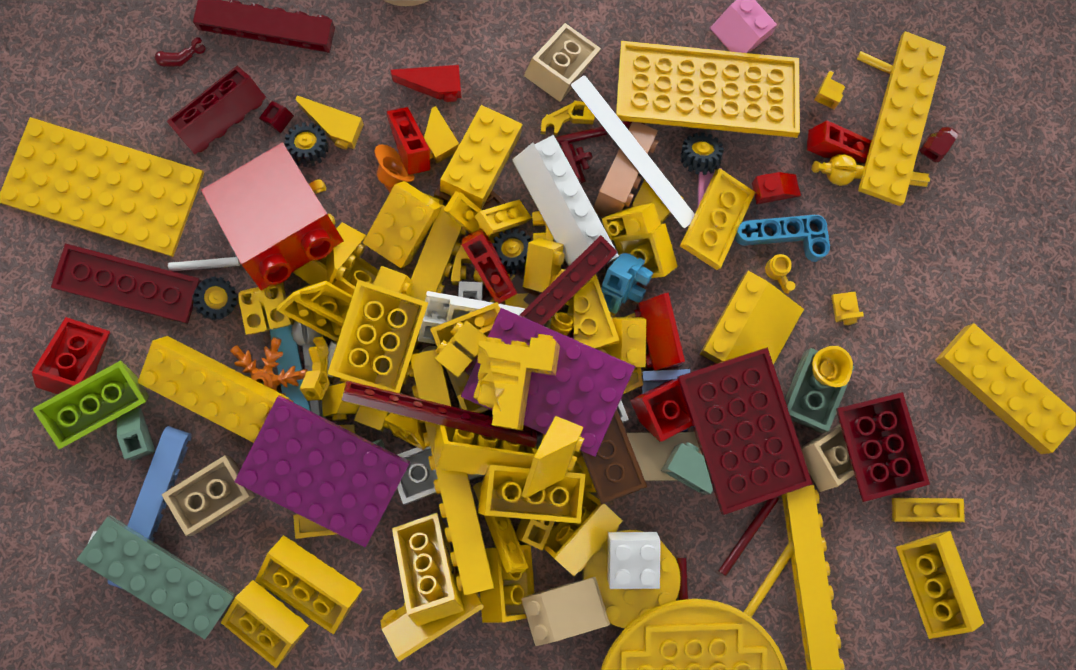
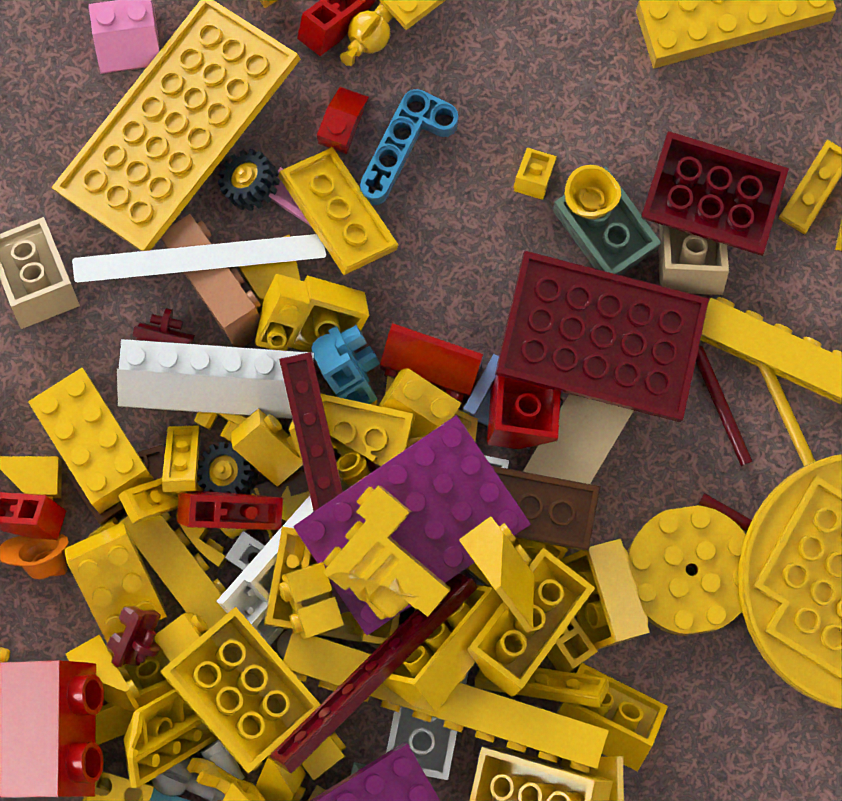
camera: 50 degrees left, 0 degrees up
(371, 257) = (138, 638): none -> dark red hips
(407, 429) = (364, 723): yellow slope -> none
(565, 114) = (98, 310): yellow piece -> none
(565, 611) = (682, 667): tan slope -> none
(587, 134) = (137, 301): dark red bar -> none
(633, 560) = (672, 553): white brick -> none
(689, 468) = (606, 426): sand green slope -> none
(752, 320) = (482, 247): yellow slope -> none
(777, 269) = (438, 178): yellow piece -> none
(819, 326) = (534, 173): none -> yellow slope
(846, 308) = (532, 130): yellow bracket -> none

